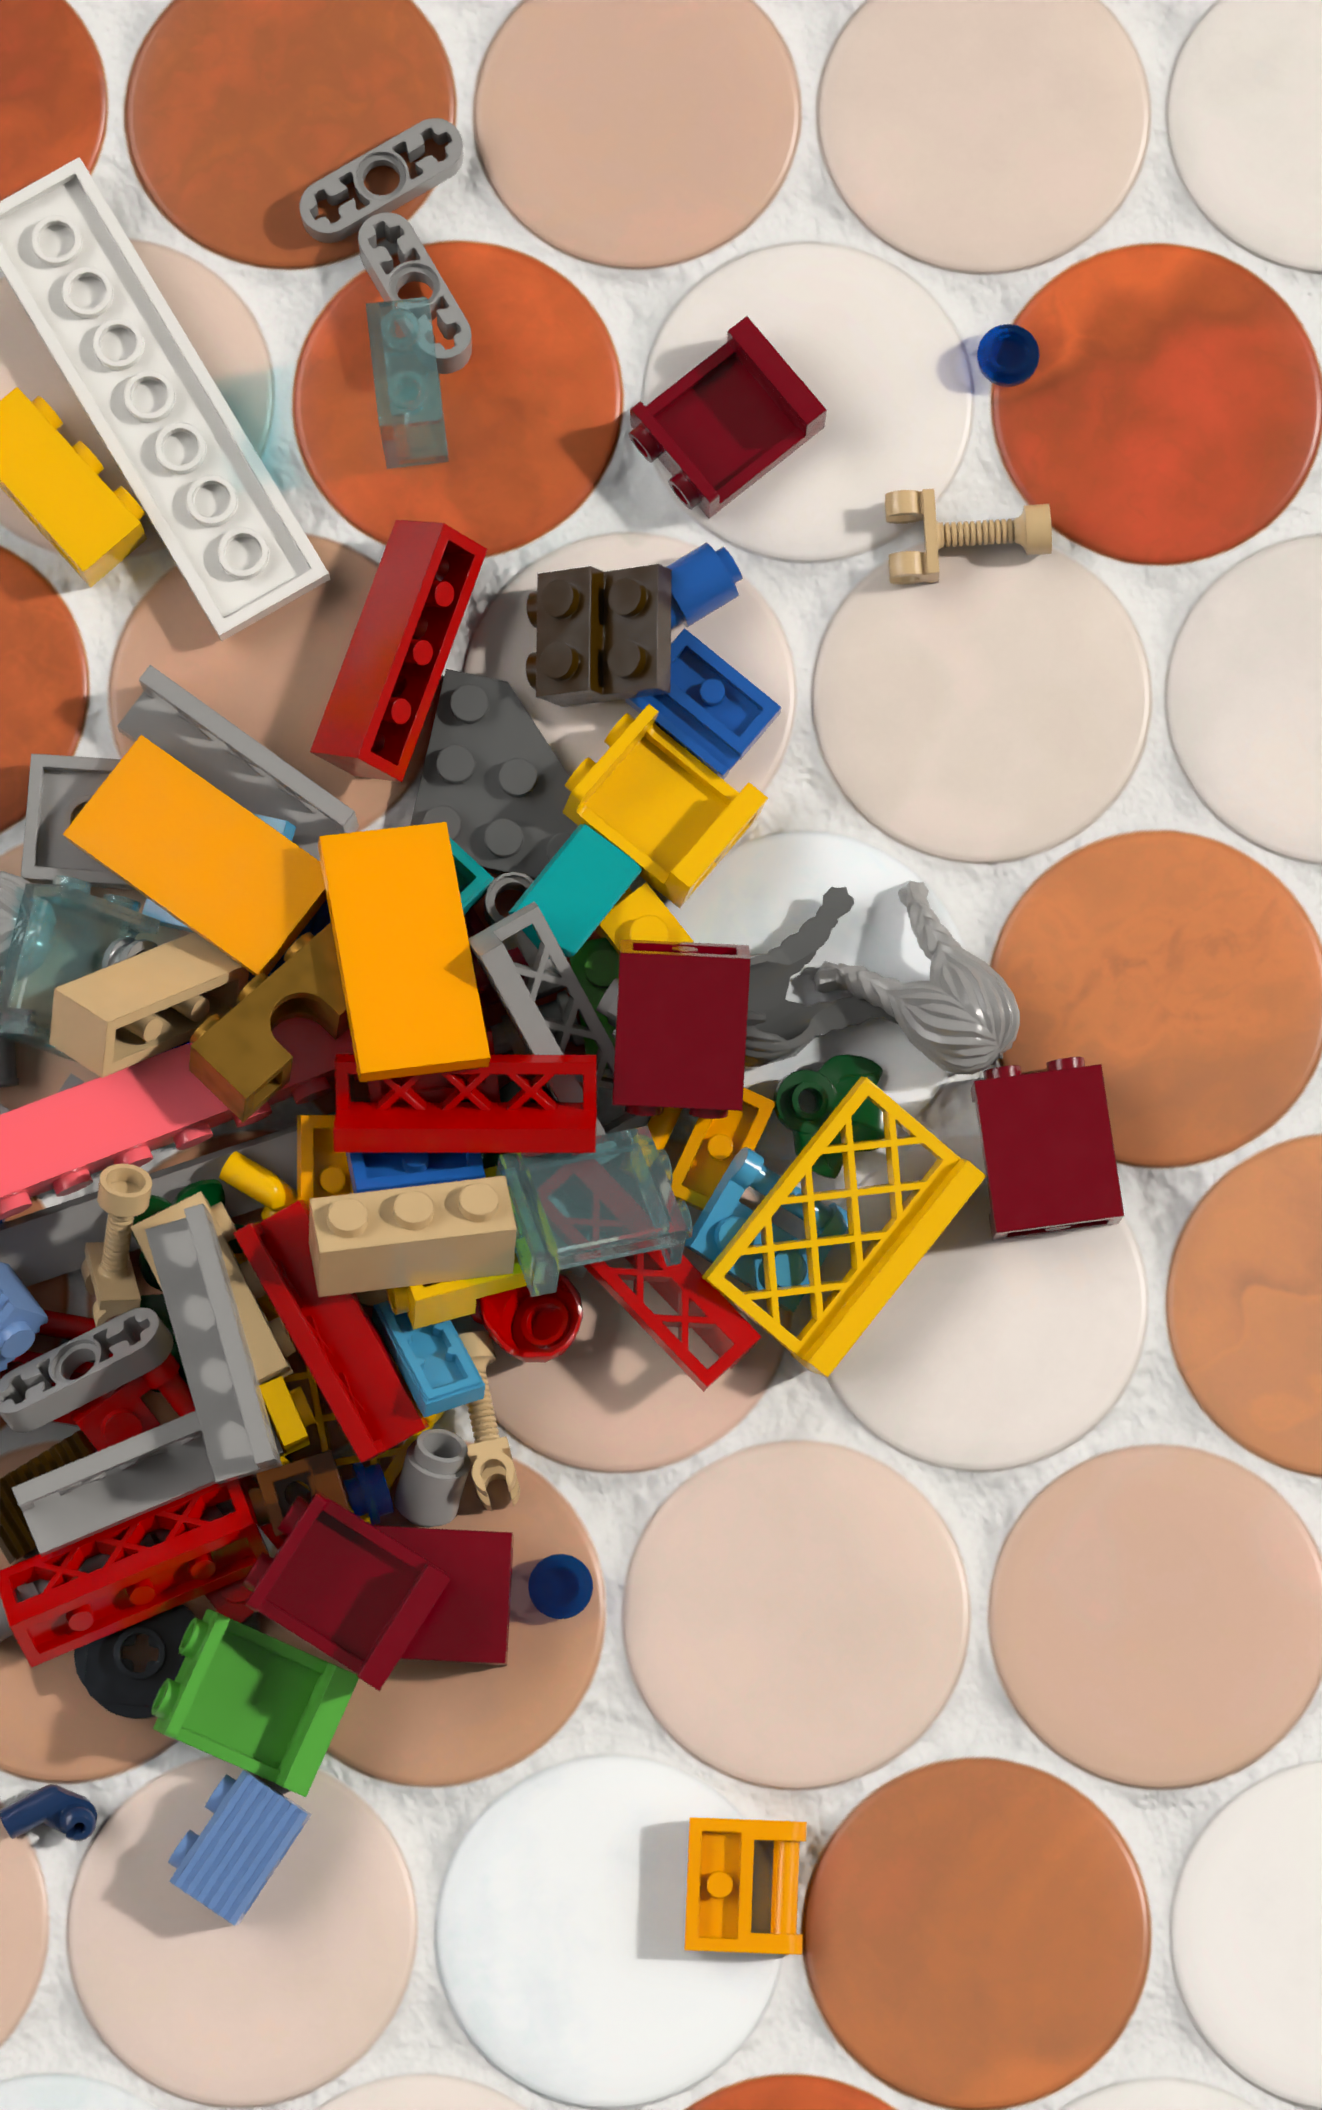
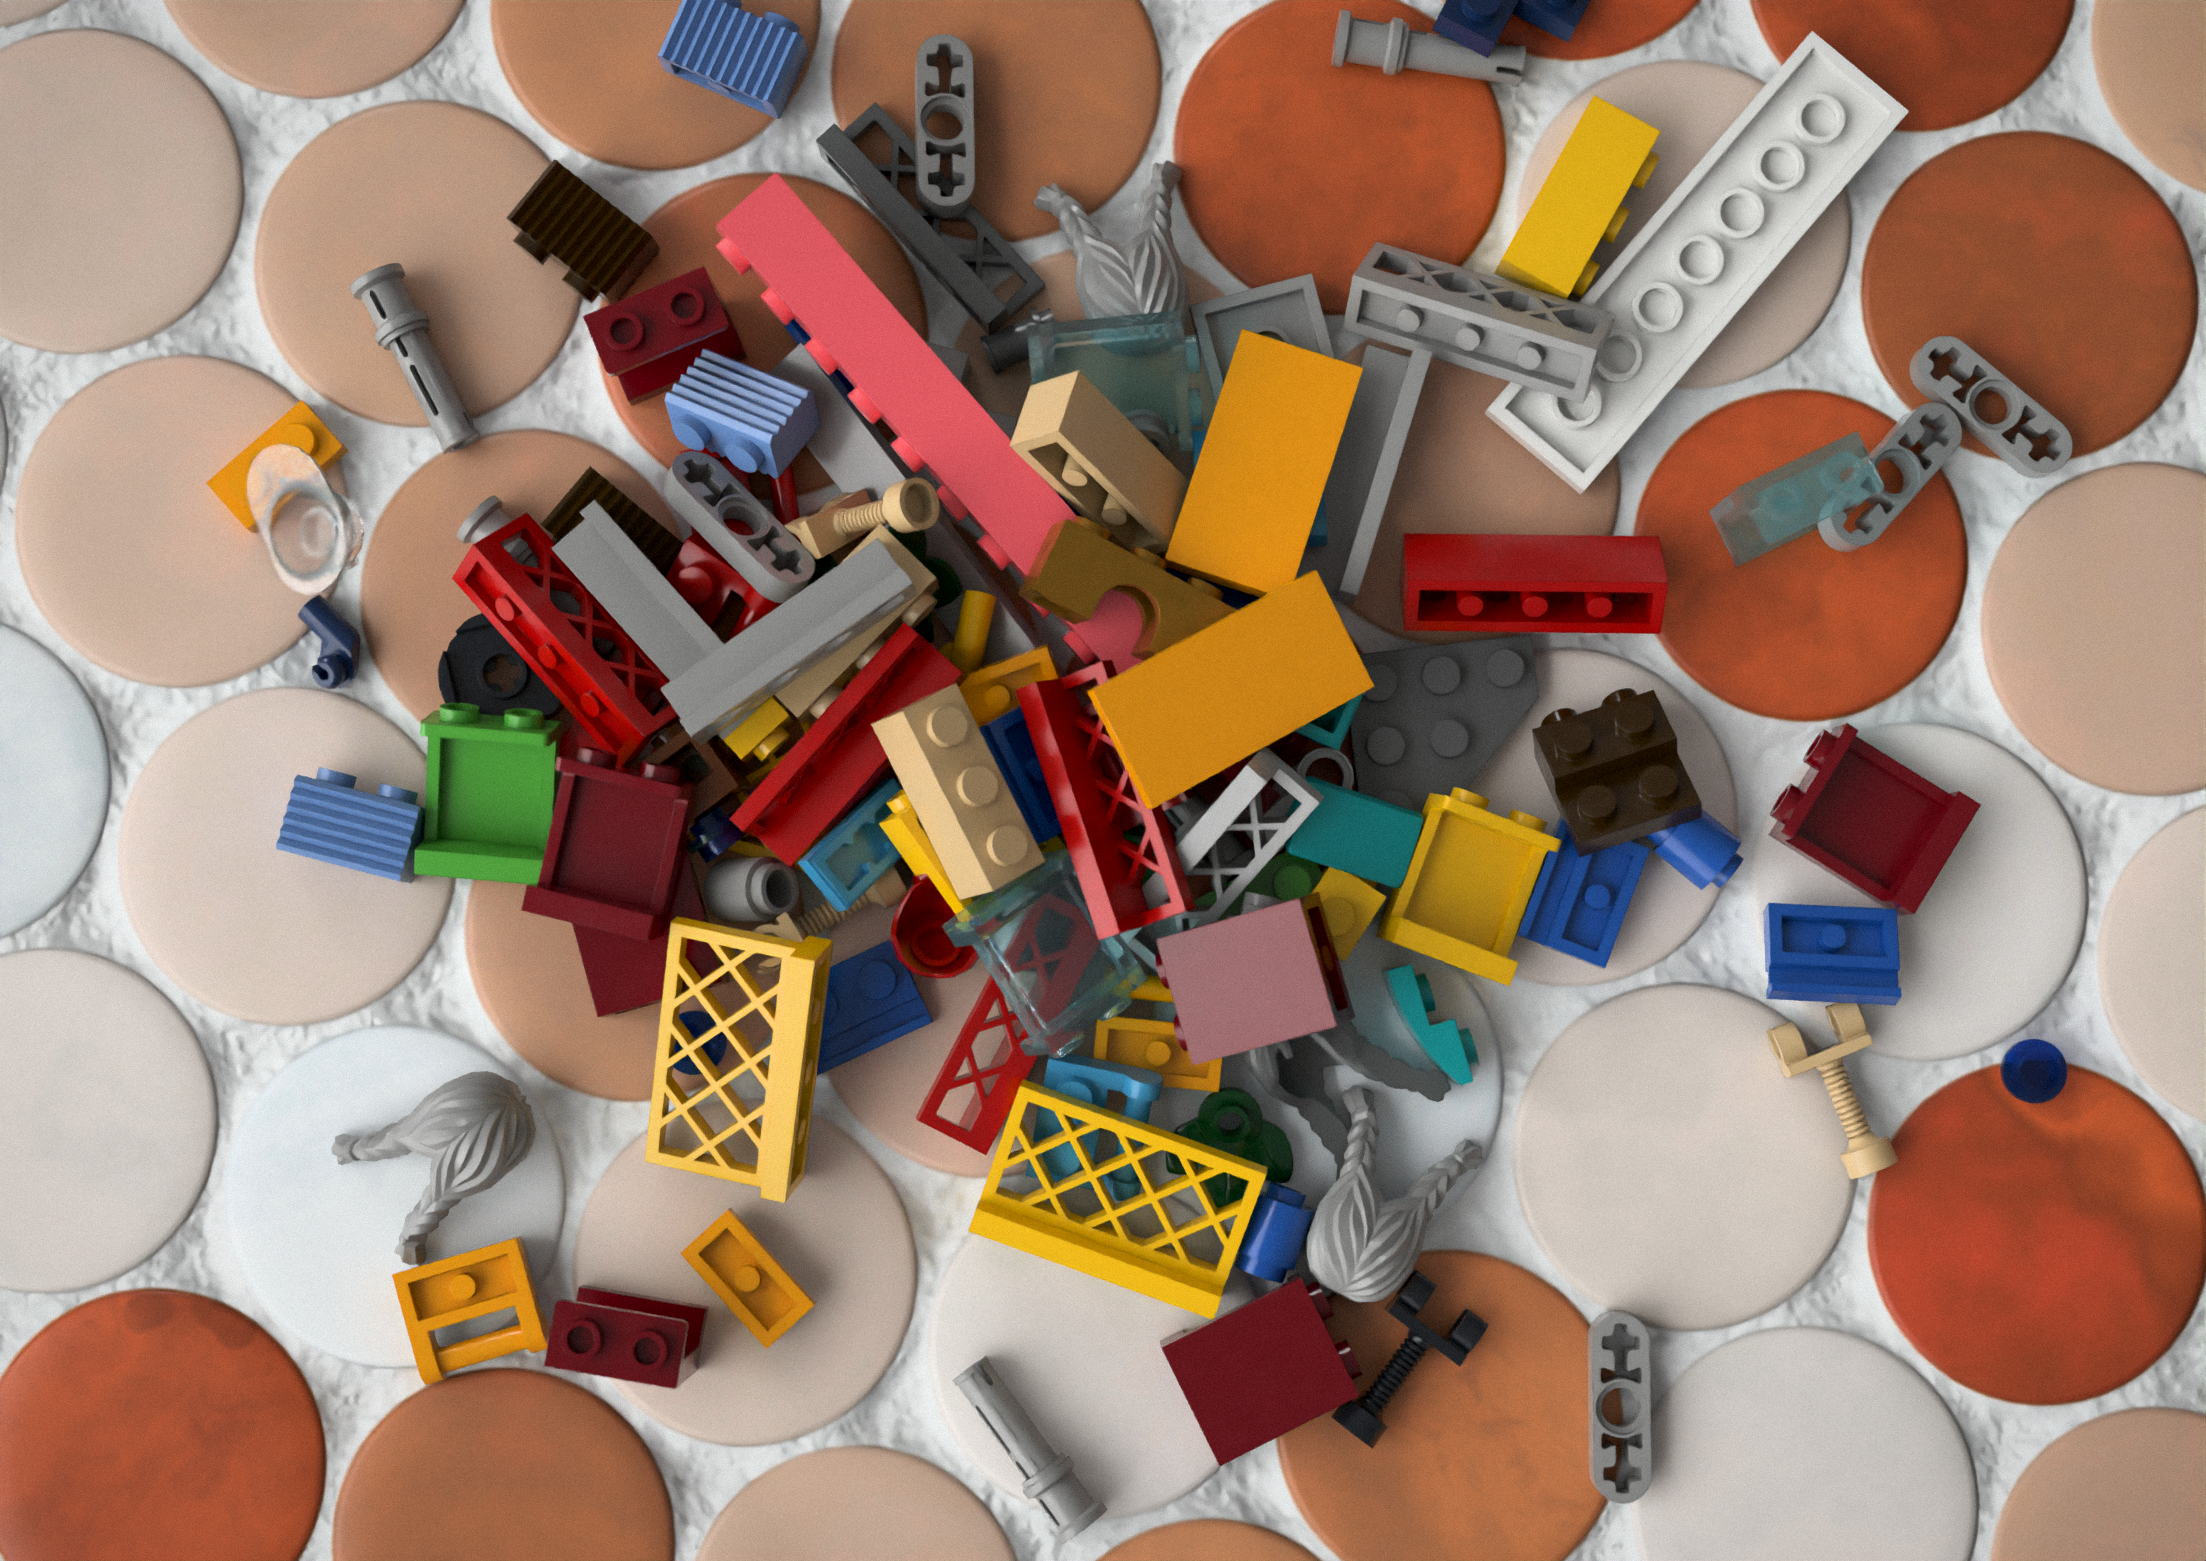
camera: 75 degrees right, 5 degrees up
(138, 618) = (1473, 325): none -> light grey fence
(577, 1822) = (472, 1133): none -> light grey hair
(578, 1421) = (868, 1005): none -> blue plate
(612, 1490) = (792, 1064): none -> yellow fence
(800, 881) = (1440, 1041): none -> teal slope
(803, 1607) = (748, 1278): none -> light orange plate
(819, 1730) = (627, 1337): none -> dark red panel
(838, 497) = (1831, 954): none -> blue plate
(926, 1094) = (1274, 1233): none -> blue brick
(1080, 1386) = (1045, 1474): none -> light grey pin
(1122, 1071) = (1364, 1414): none -> black bar
(1232, 862) = (1604, 1454): none -> light grey beam

